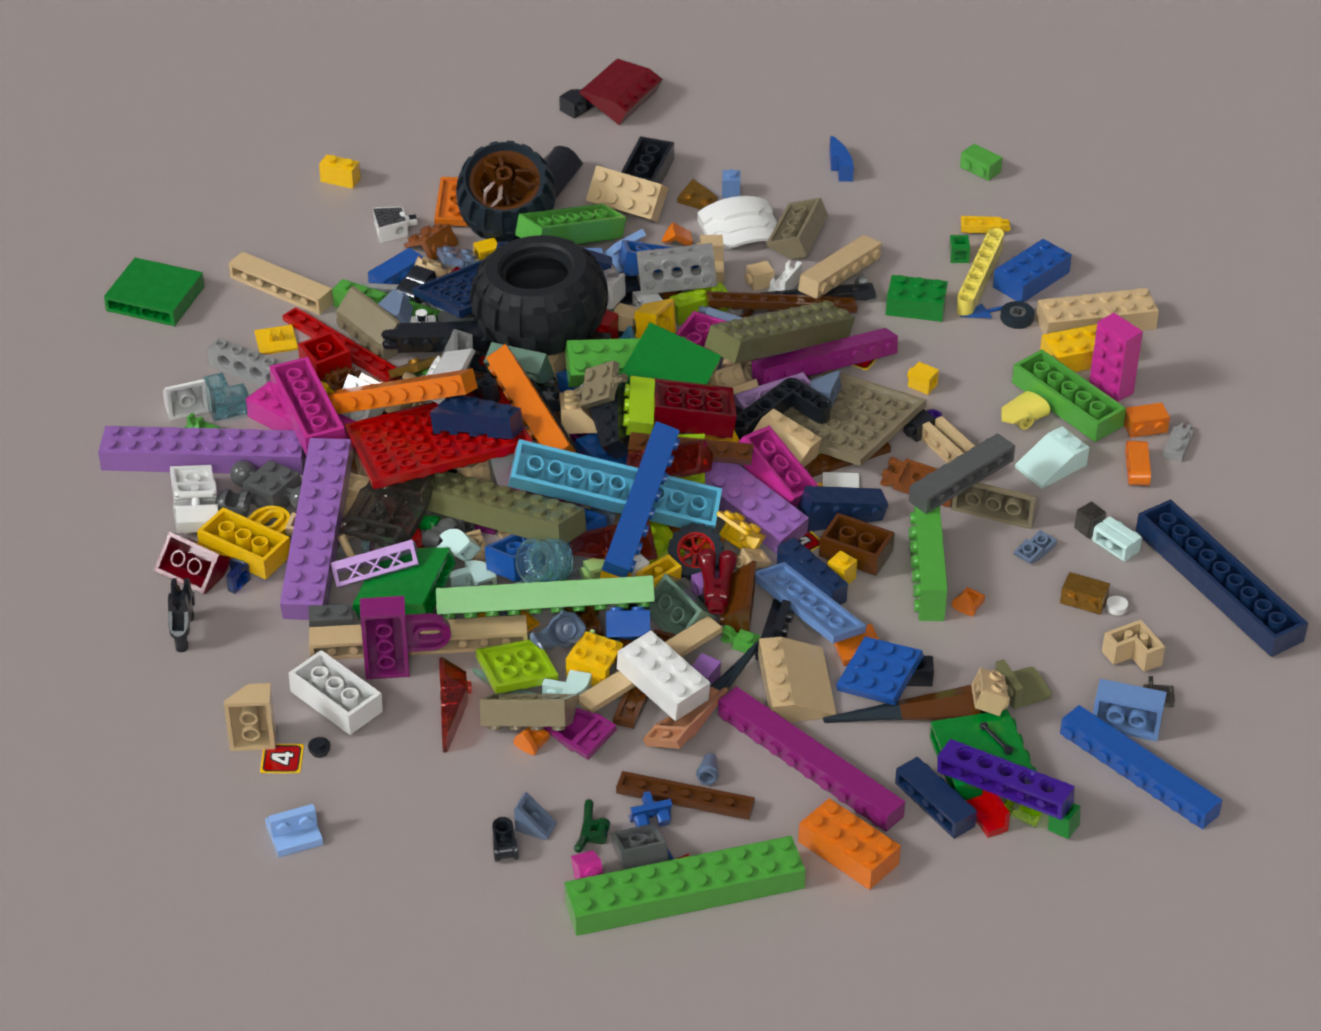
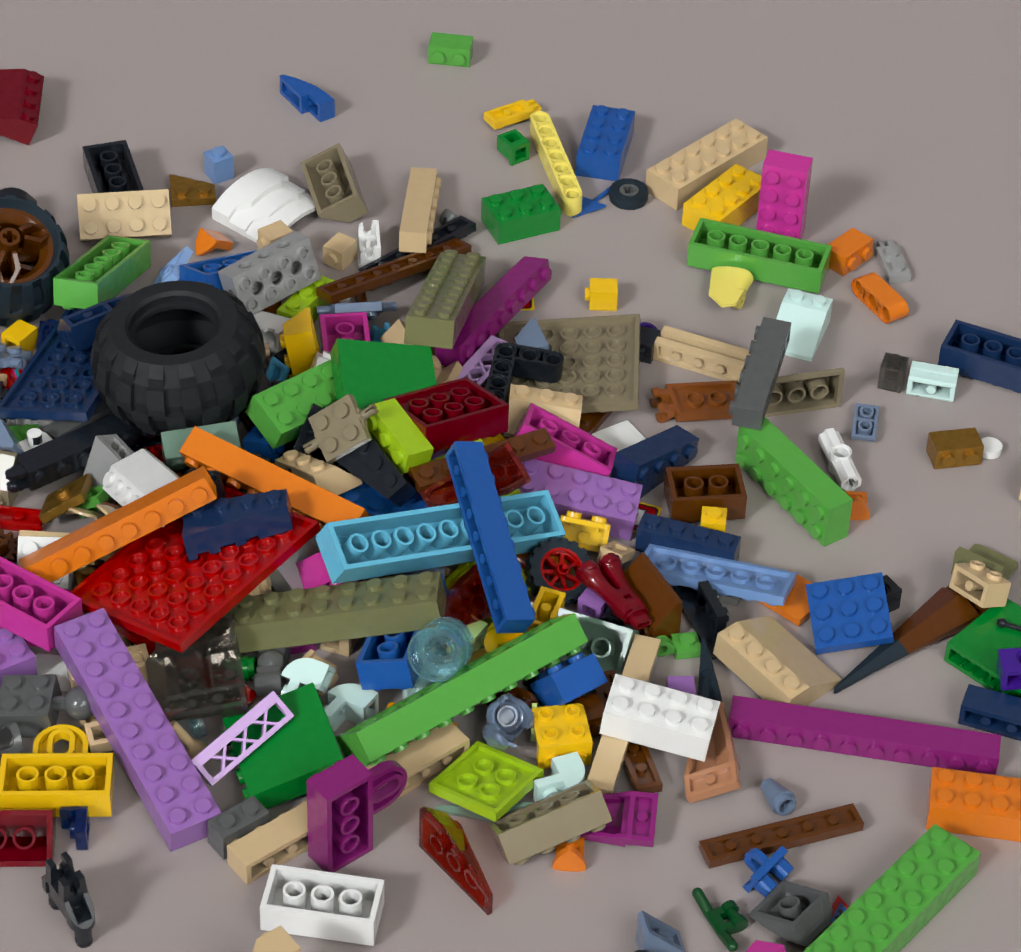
camera: 35 degrees left, 0 degrees up
(985, 564) = (839, 460): none -> white piece

